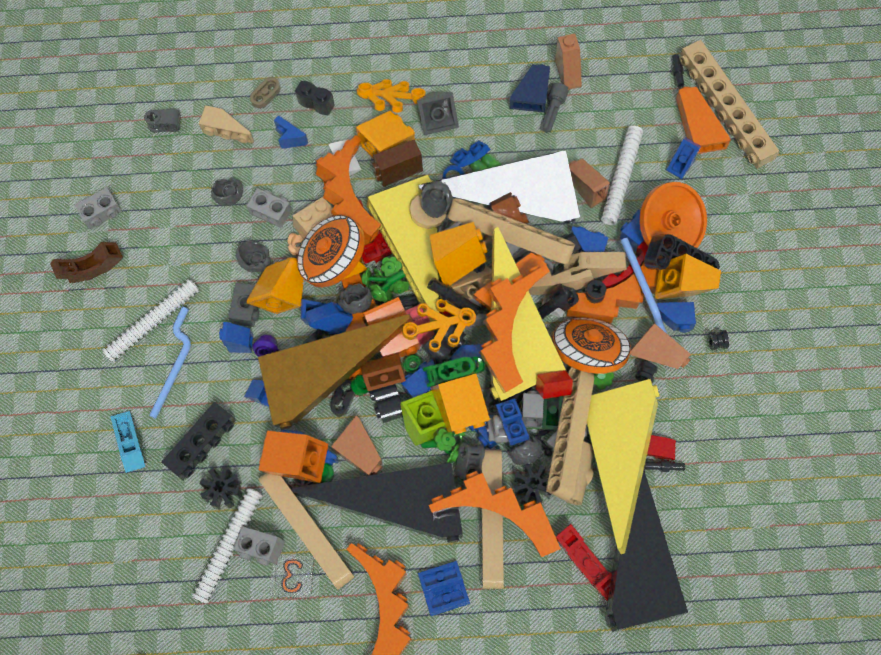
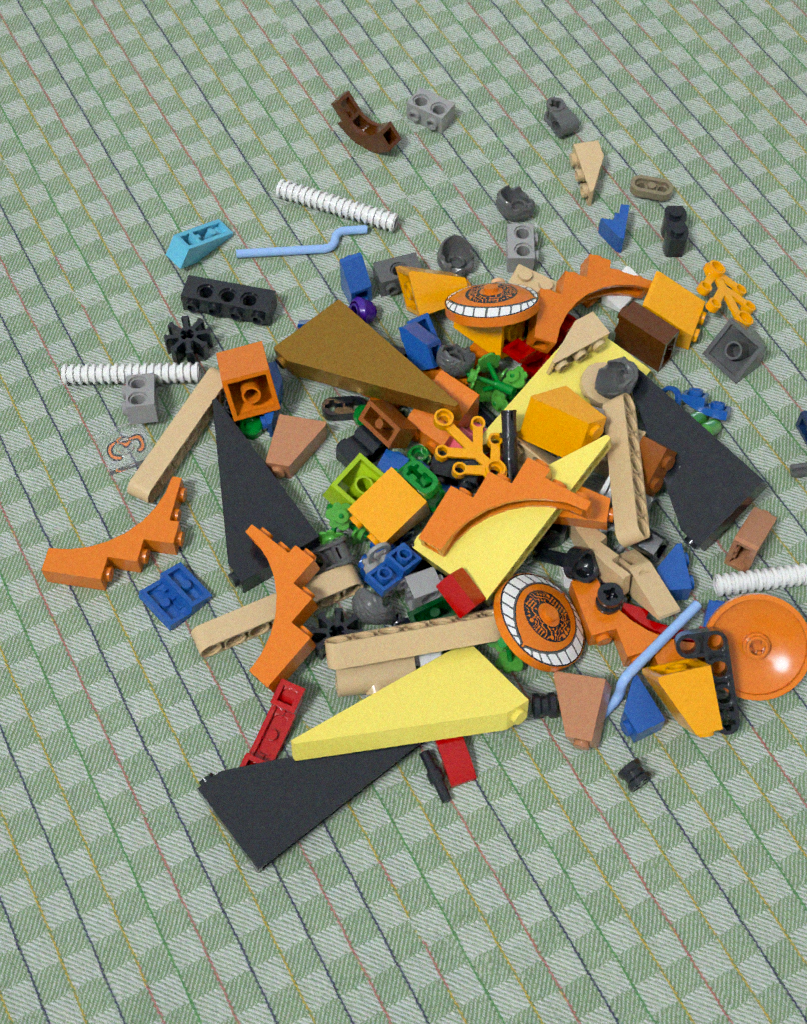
camera: 60 degrees right, 10 degrees down
(388, 209) = (583, 337): none -> tan slope

